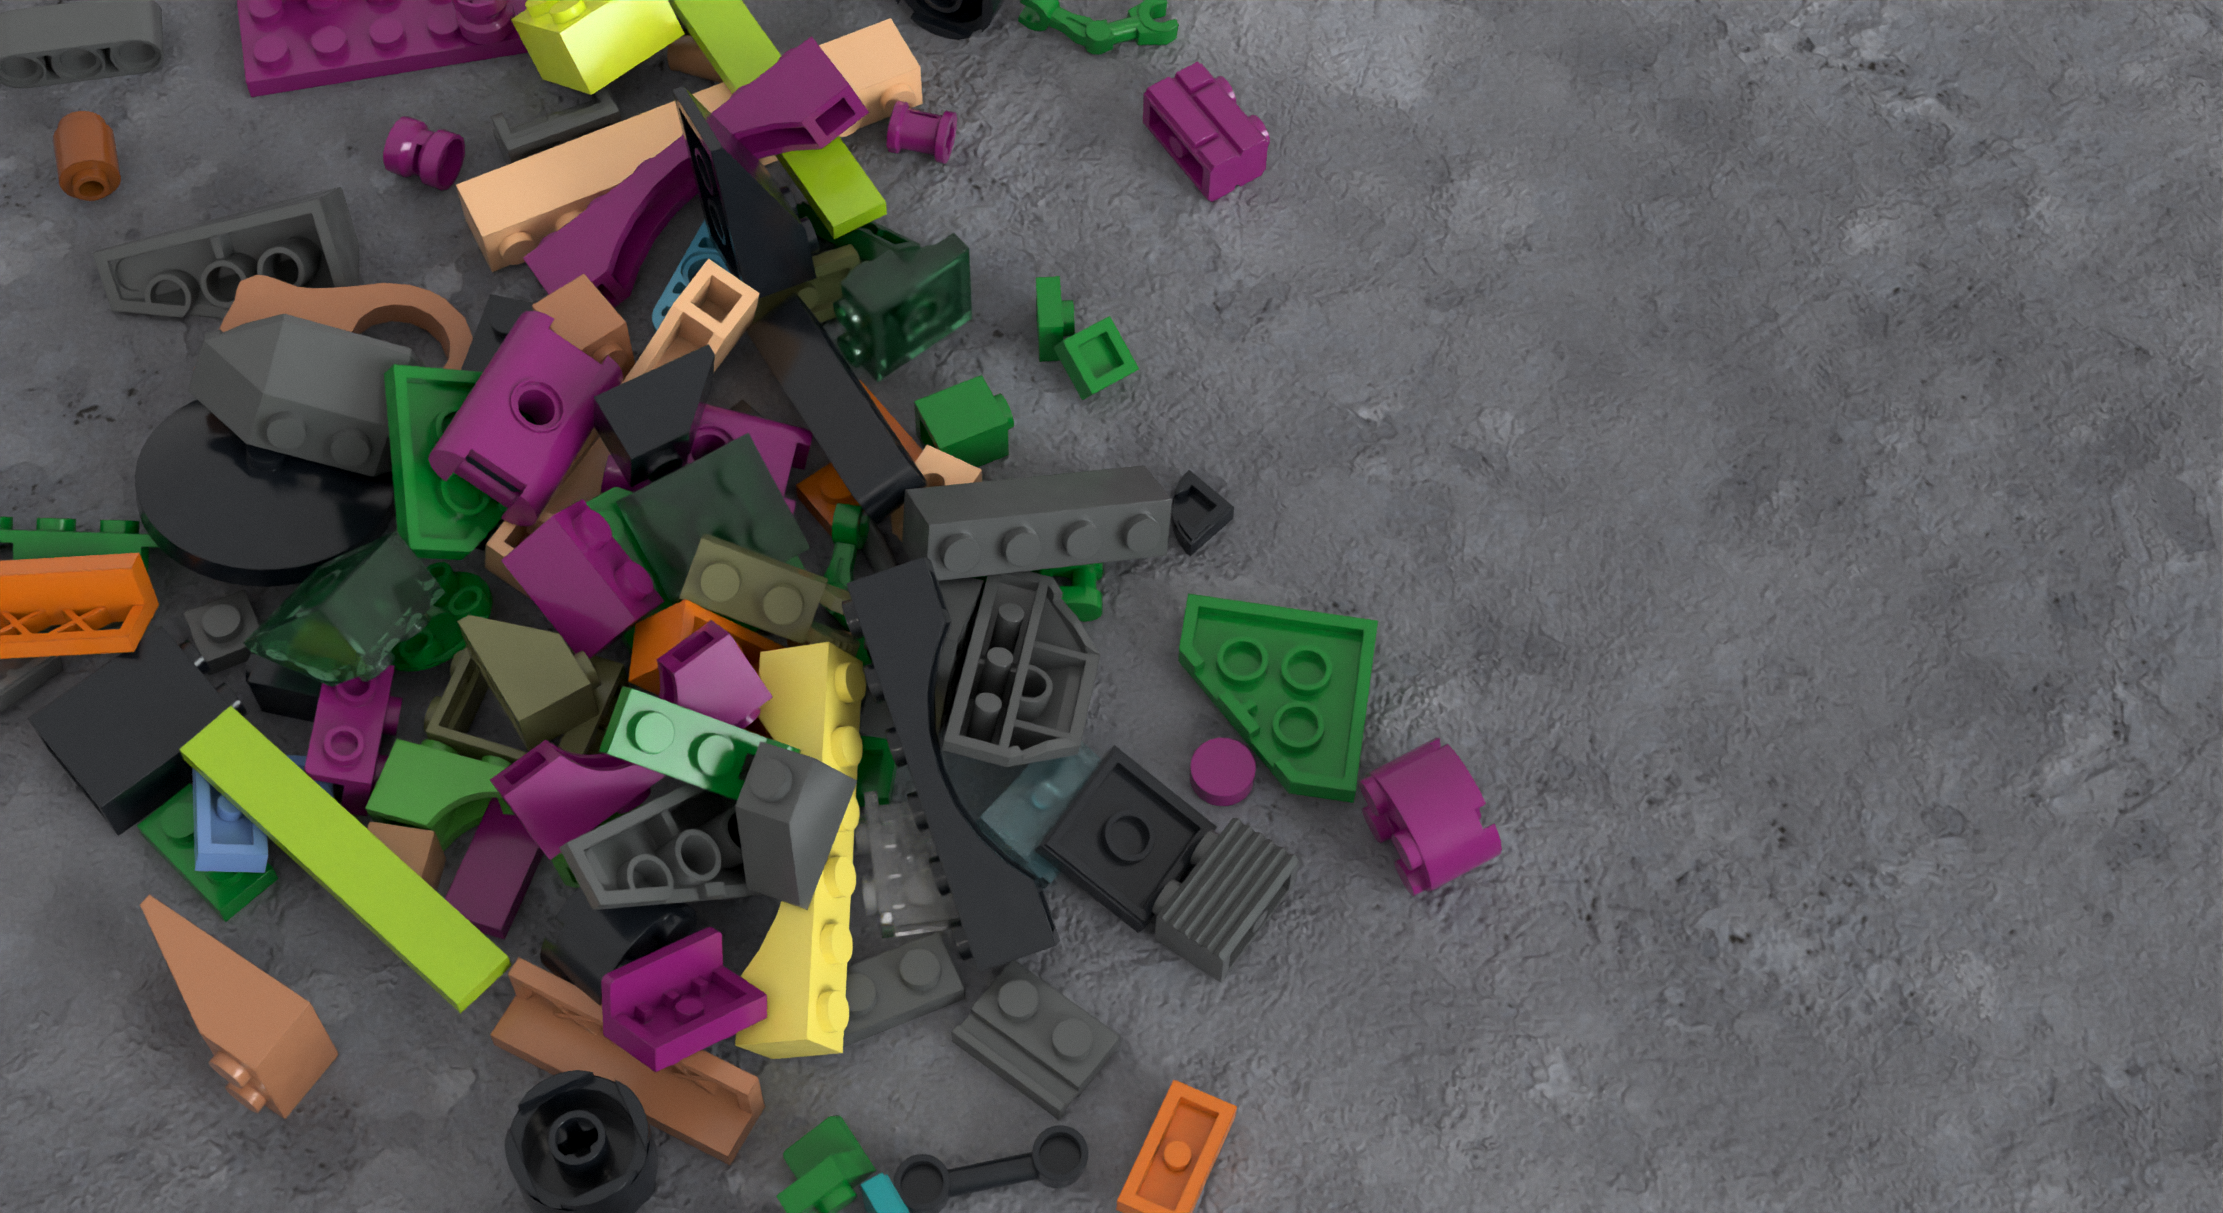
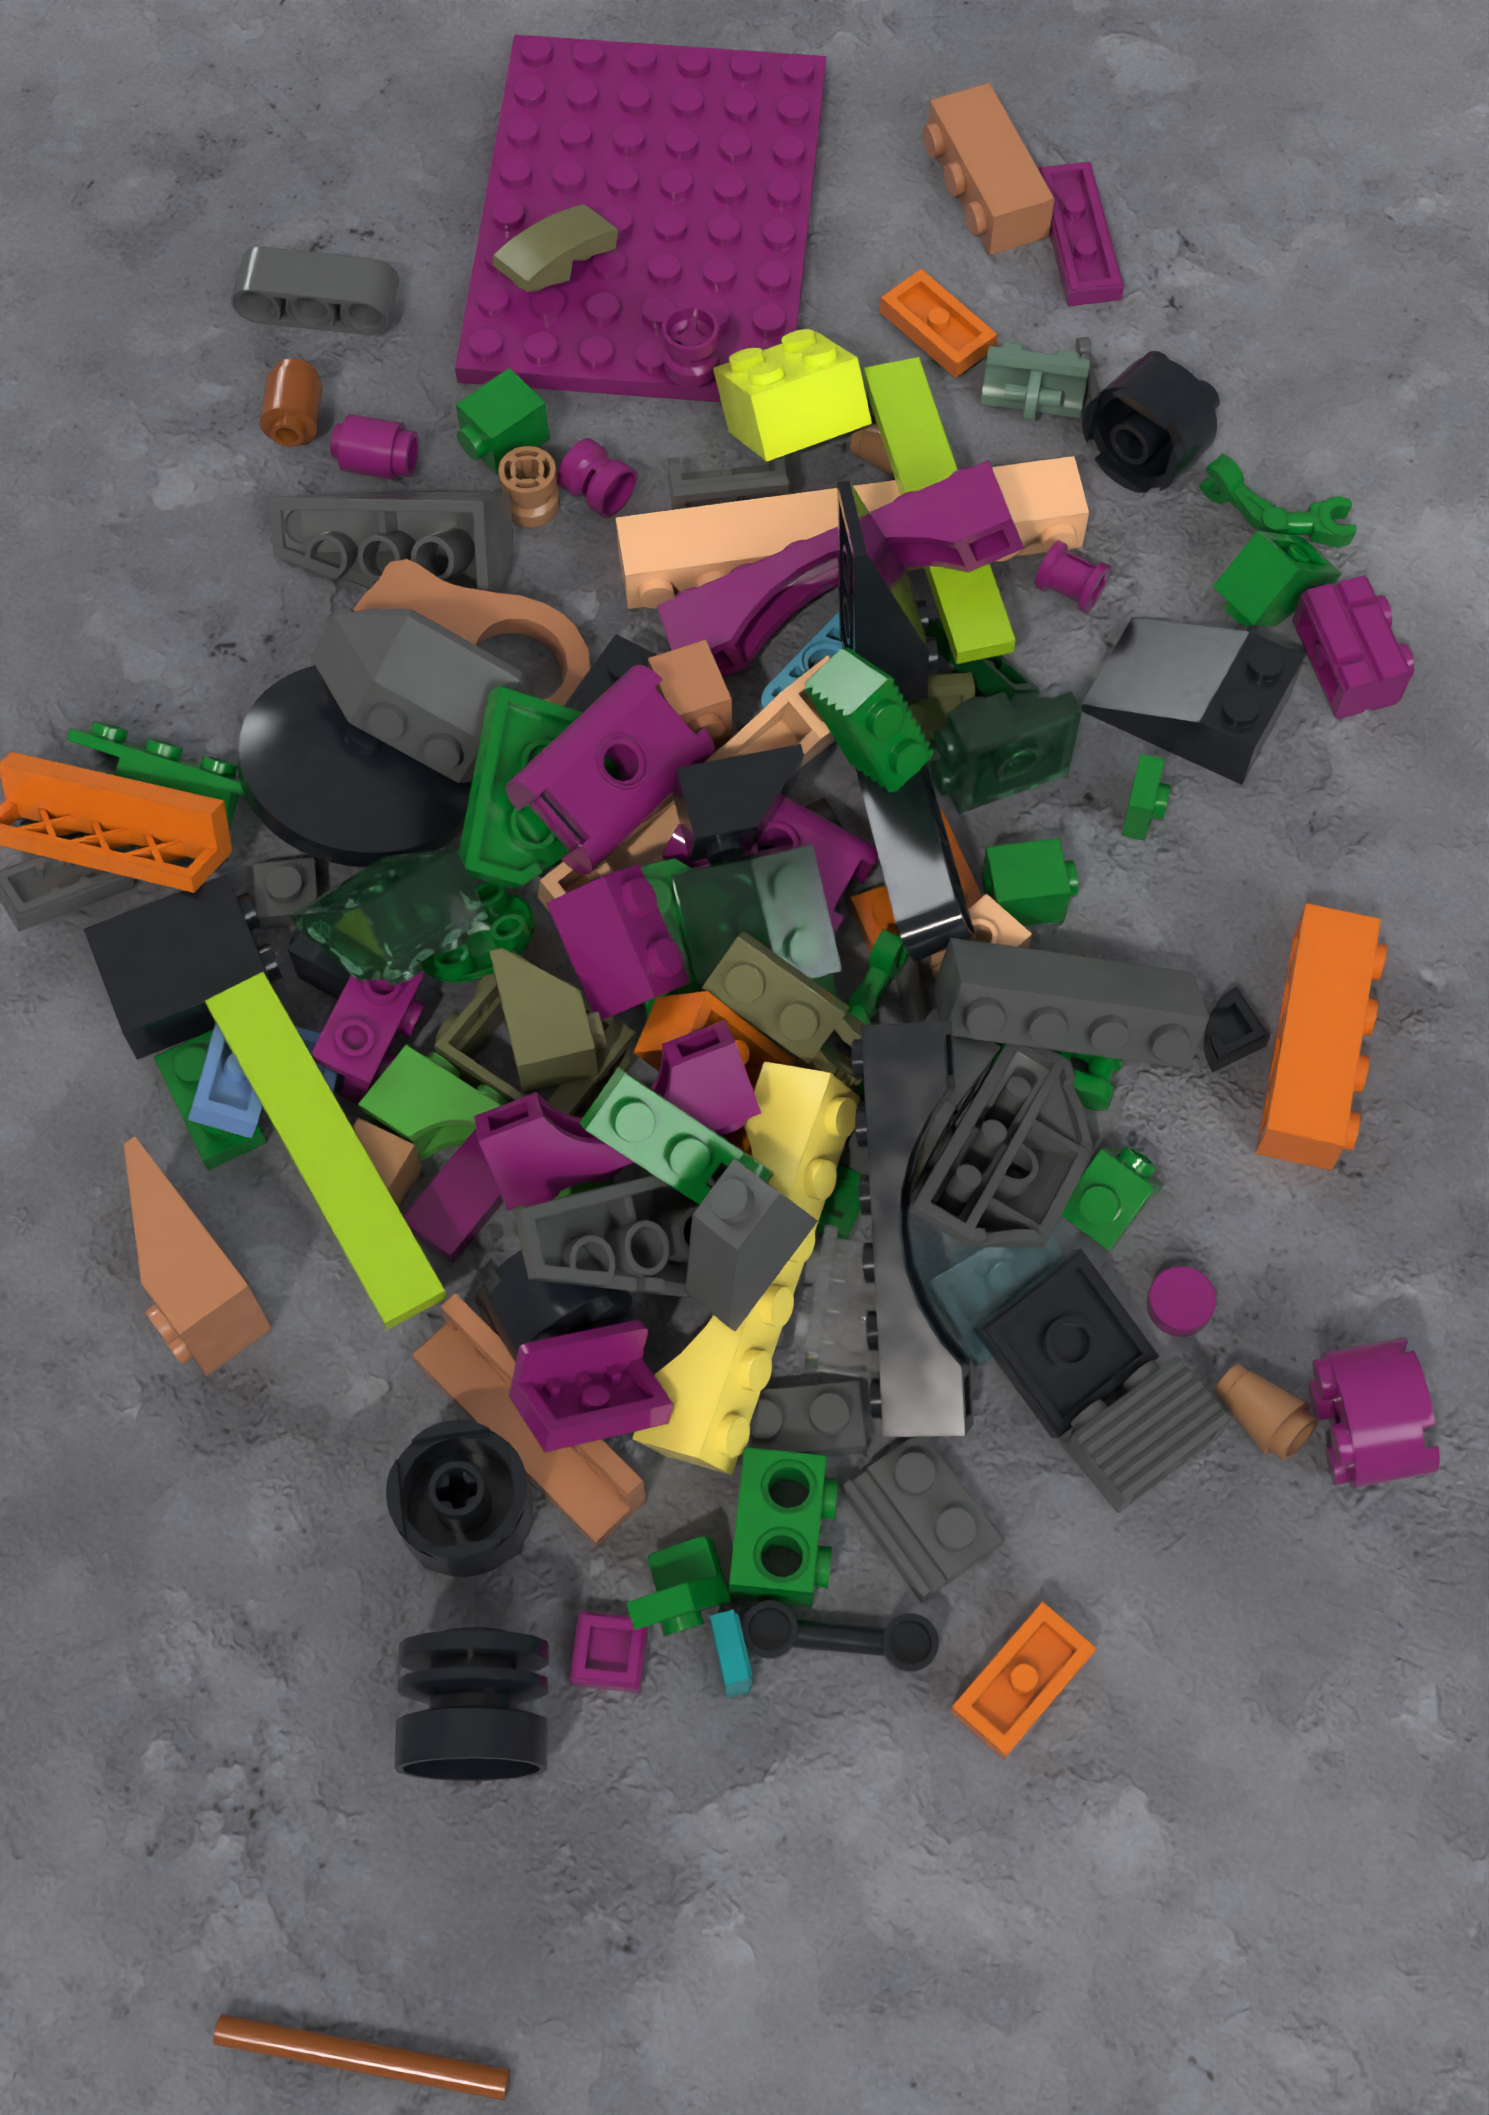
camera: 20 degrees right, 5 degrees up
(186, 178) = (375, 447): none -> magenta brick
(311, 122) = (501, 418): none -> green brick
(360, 171) = (531, 480): none -> medium nougat wheel
(767, 307) = (869, 719): none -> green brick
(893, 1088) = (767, 1526): none -> green brick
(1071, 209) = (1196, 691): none -> black slope
(1096, 358) = (1177, 849): green plate -> none
(1110, 86) = (1270, 577): none -> green slope
(1128, 691) = (1112, 1194): none -> green bracket
(1280, 490) = (1320, 1038): none -> orange brick
(1287, 686) = (1270, 1234): green plate -> none
(1331, 847) = (1268, 1413): none -> medium nougat cone

